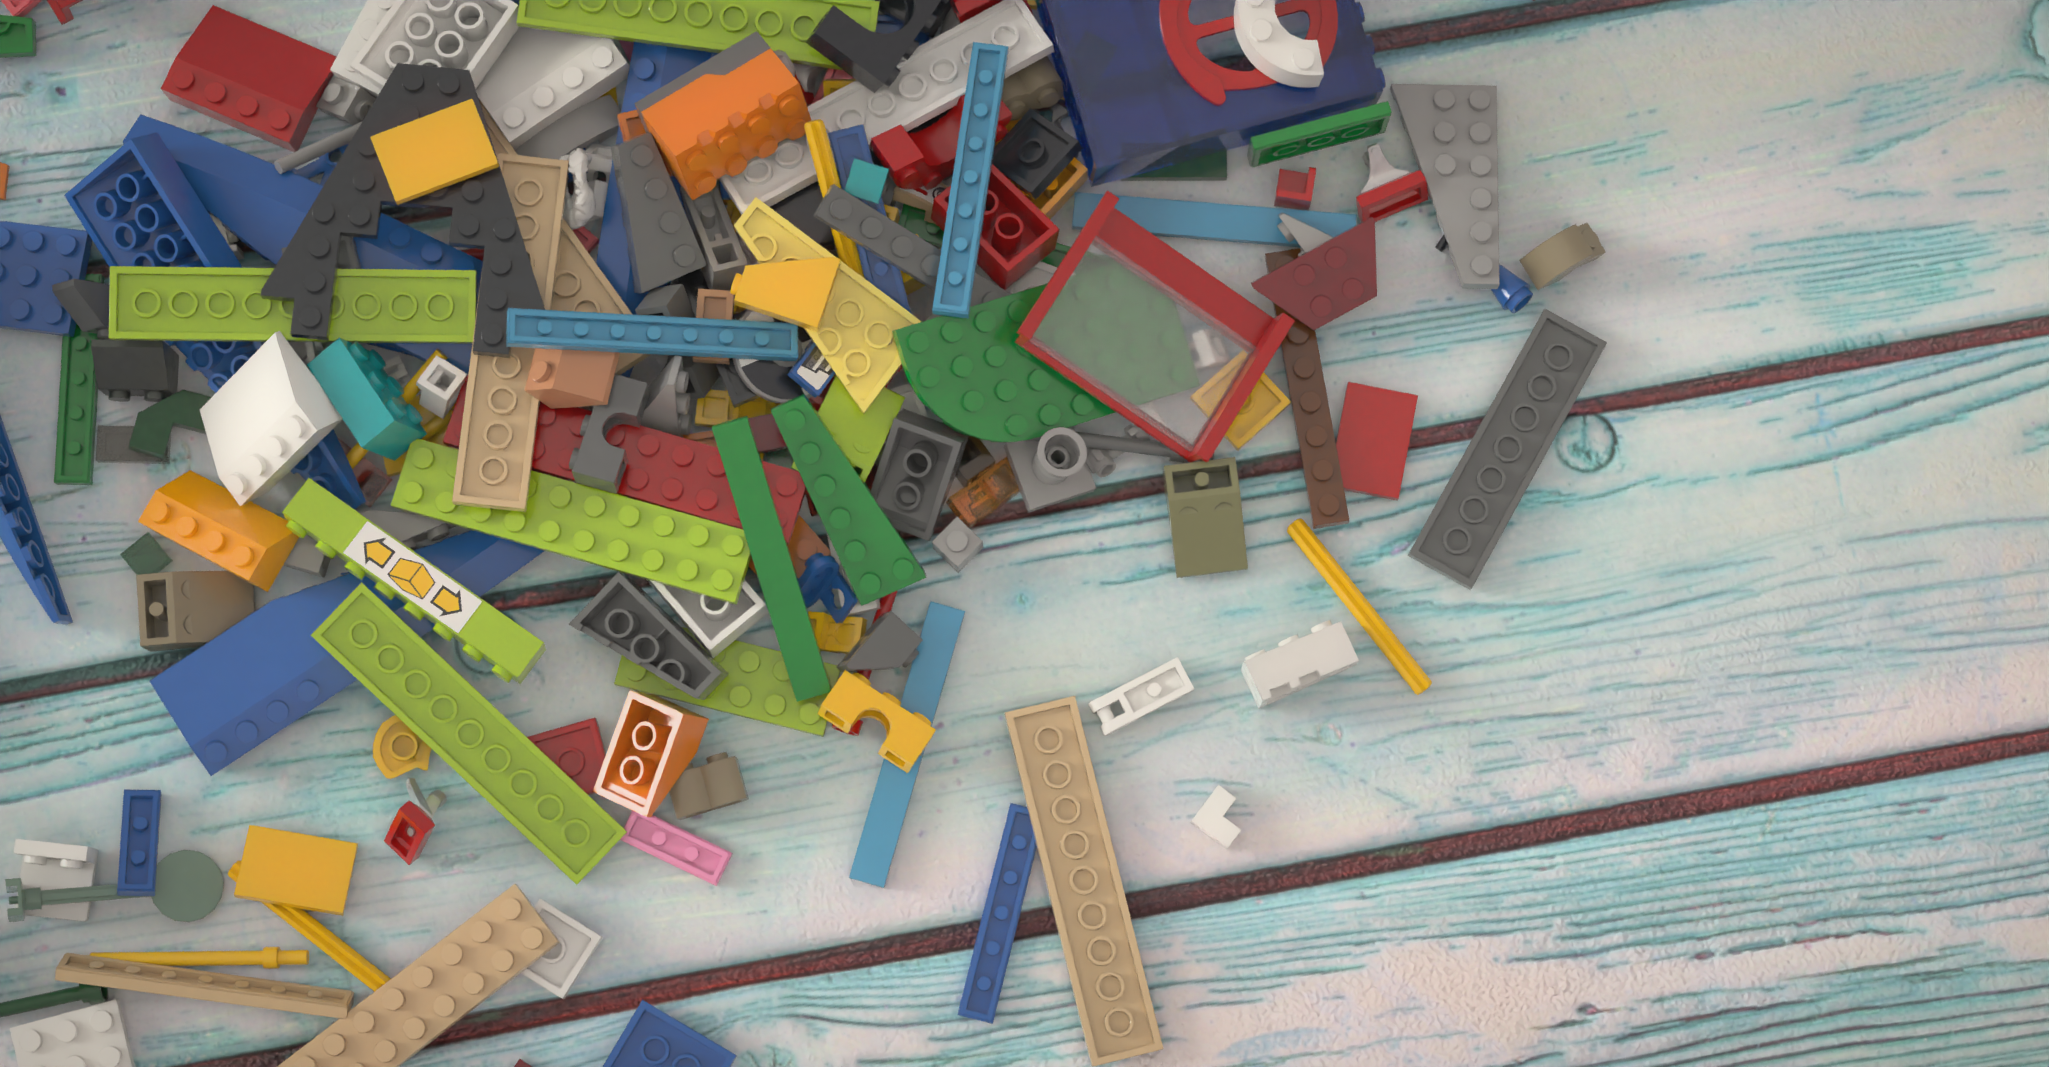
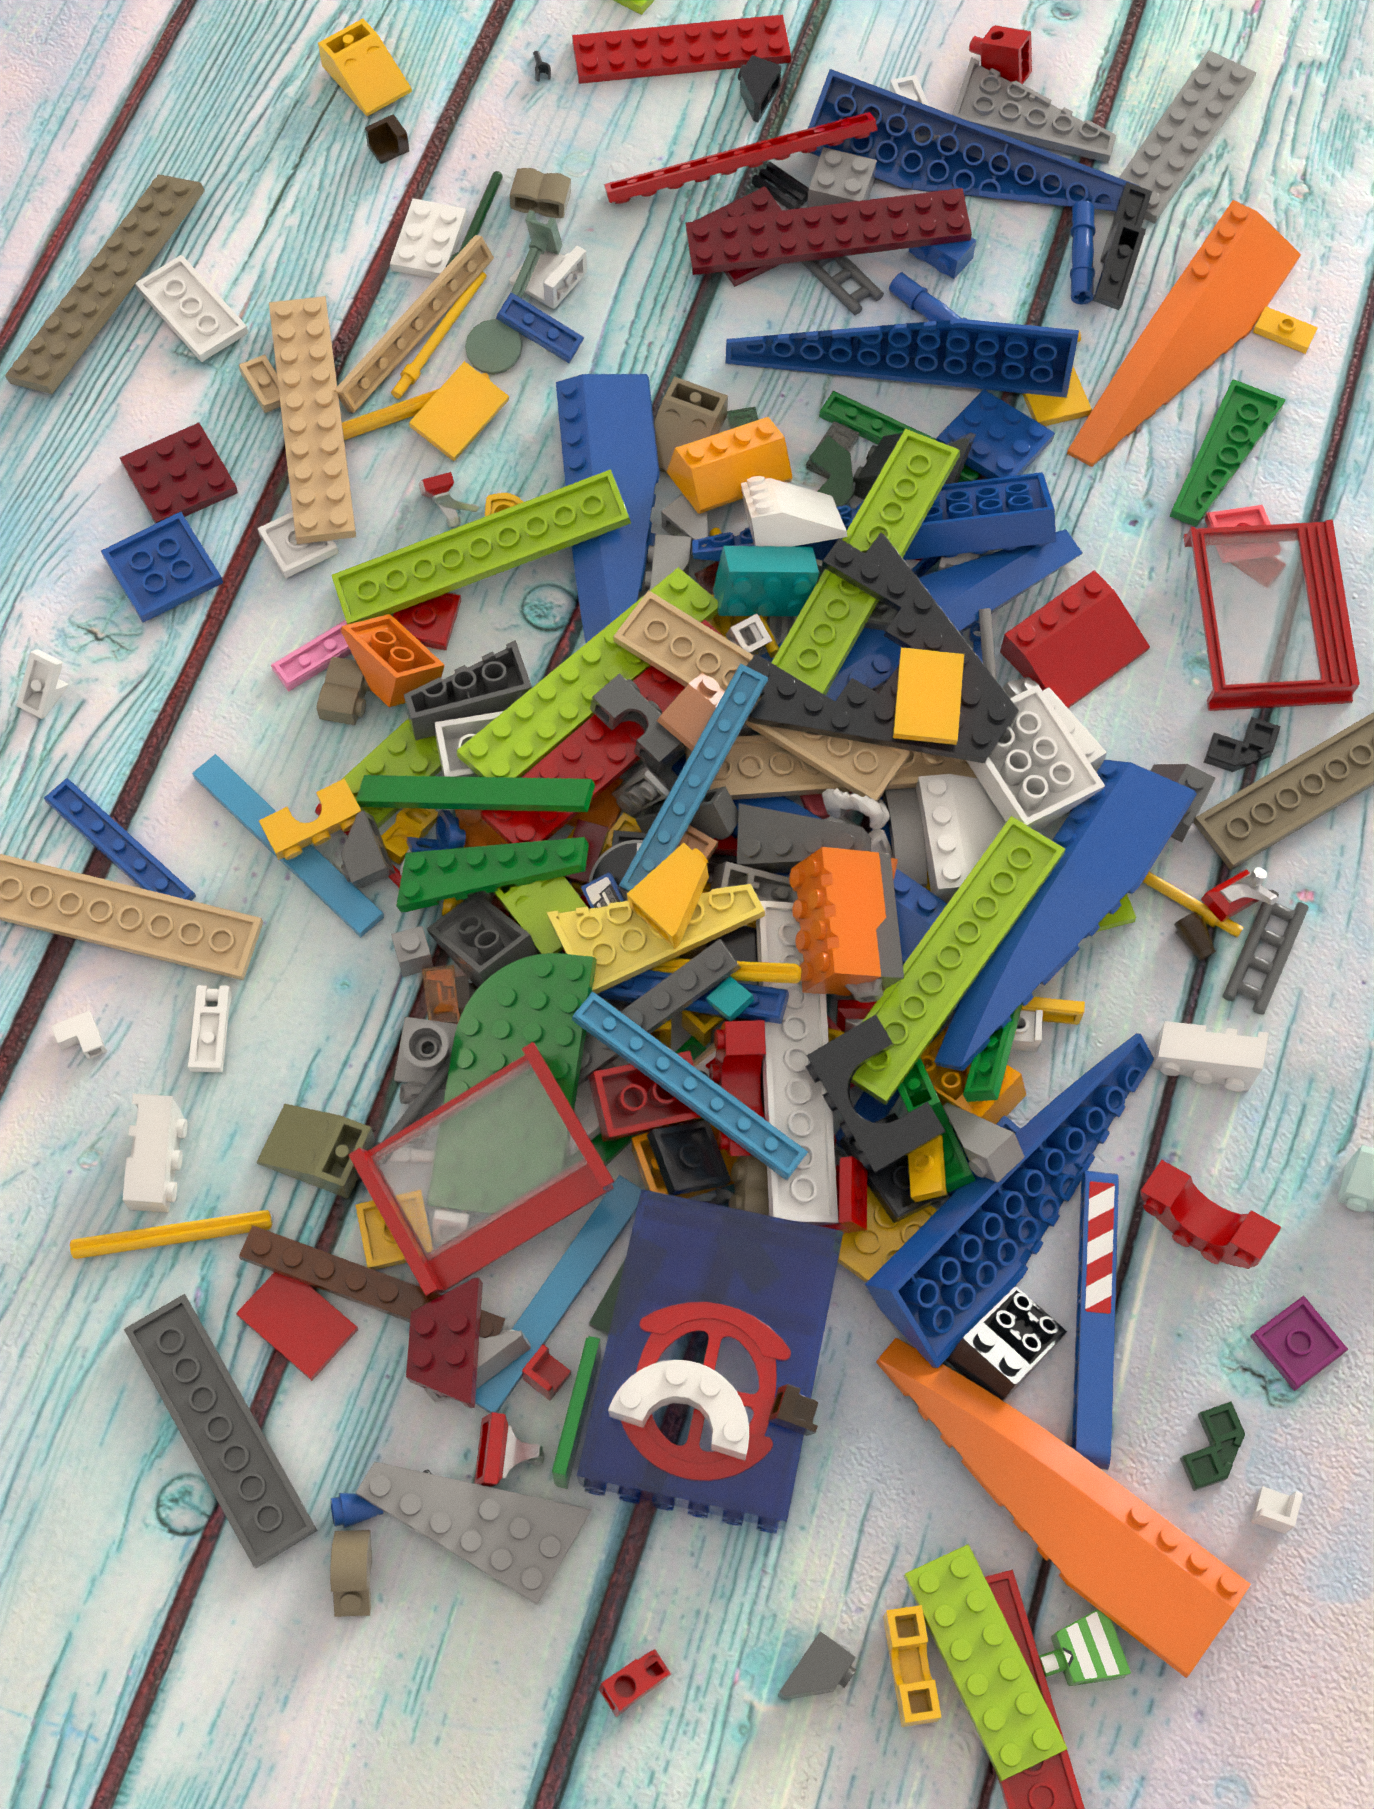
camera: 115 degrees right, 15 degrees down
(413, 581) = (610, 556): lime brick -> none

